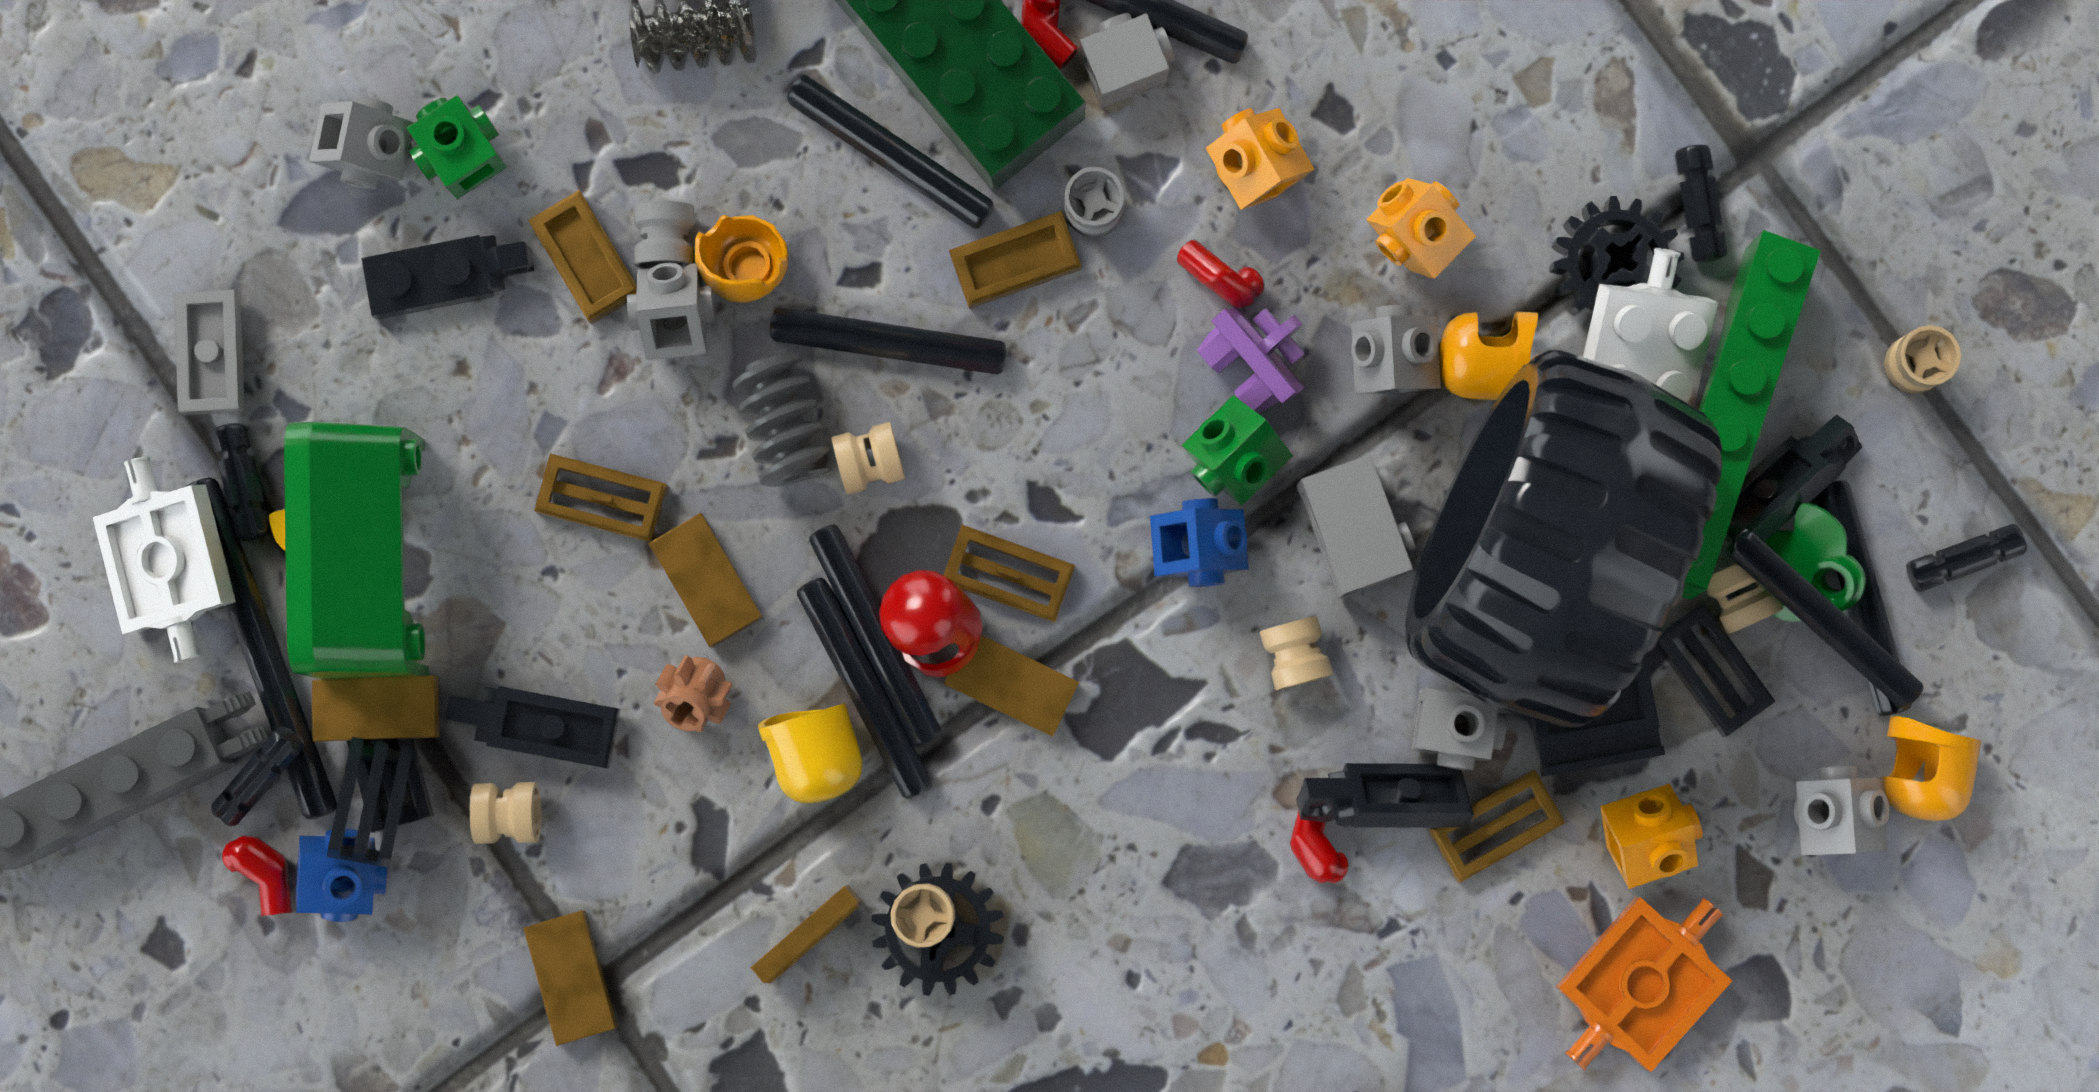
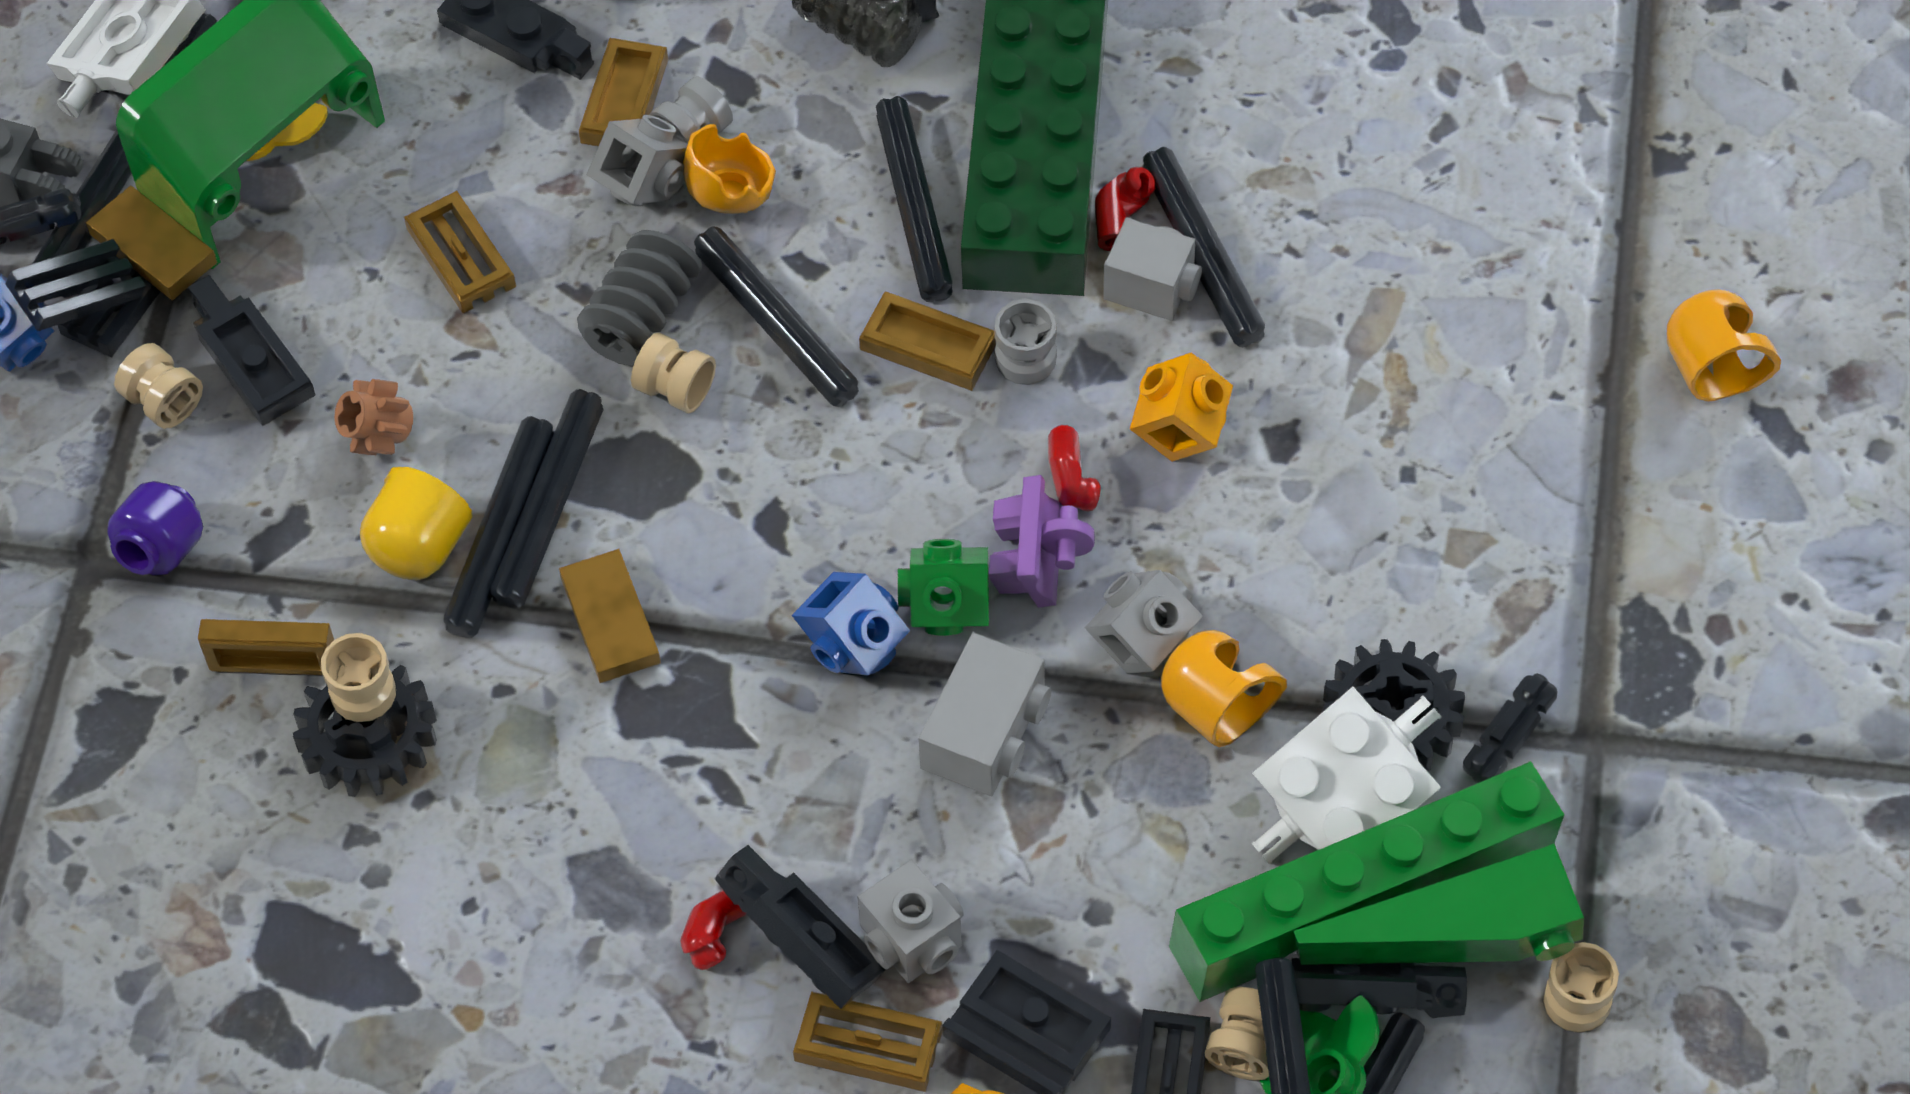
camera: 45 degrees right, 25 degrees down
(570, 977) = (71, 539): pearl gold tile -> none
(628, 923) = (154, 528): none -> dark purple head
(705, 580) = (470, 362): pearl gold tile -> none
(927, 613) = (604, 492): red helmet -> none
(1056, 591) = (710, 581): pearl gold tile -> none
(1296, 653) = (843, 770): tan wheel -> none
(1419, 226) = (1243, 569): light orange brick -> none
(1564, 539) = (1109, 786): black tyre -> none
(1845, 367) = (1480, 916): none -> green wedge

